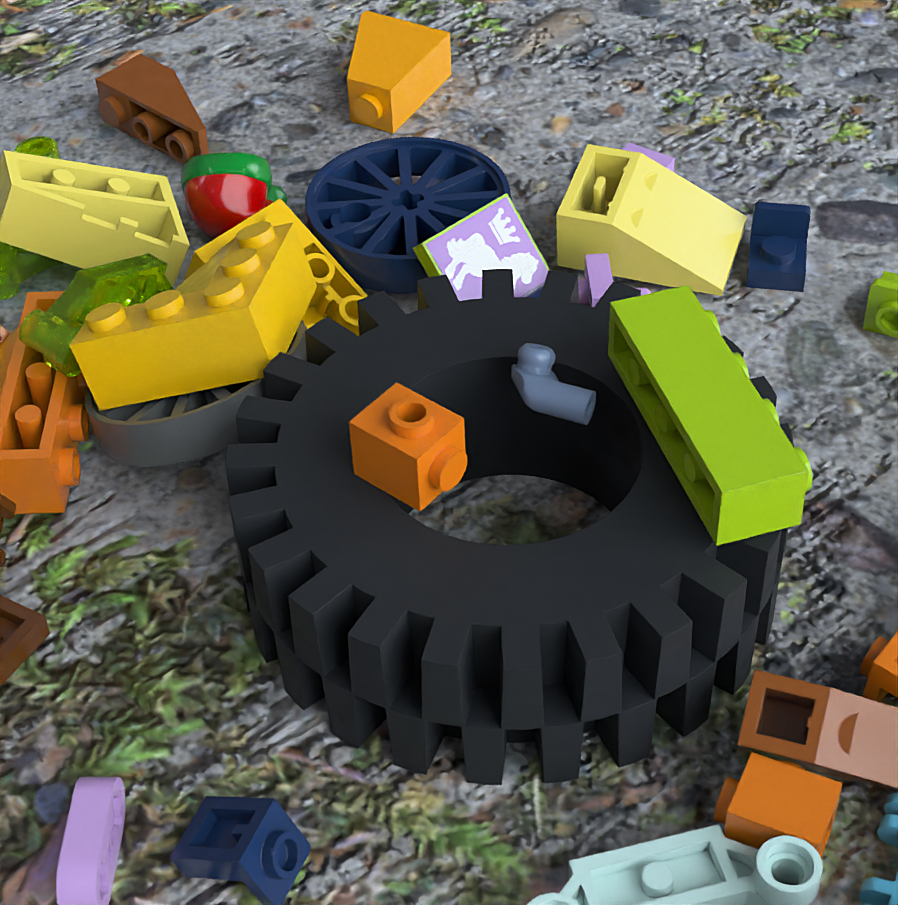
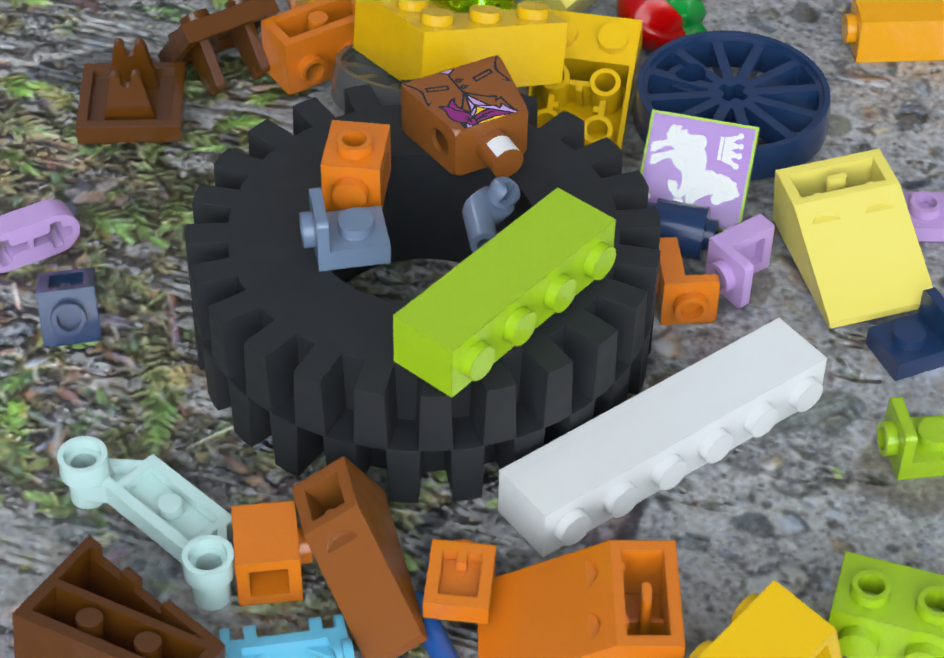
camera: 55 degrees right, 0 degrees up
(406, 333) = (468, 118): none -> dark orange torso
(494, 503) = (344, 236): none -> sand blue bracket
(836, 551) = (659, 436): none -> white brick

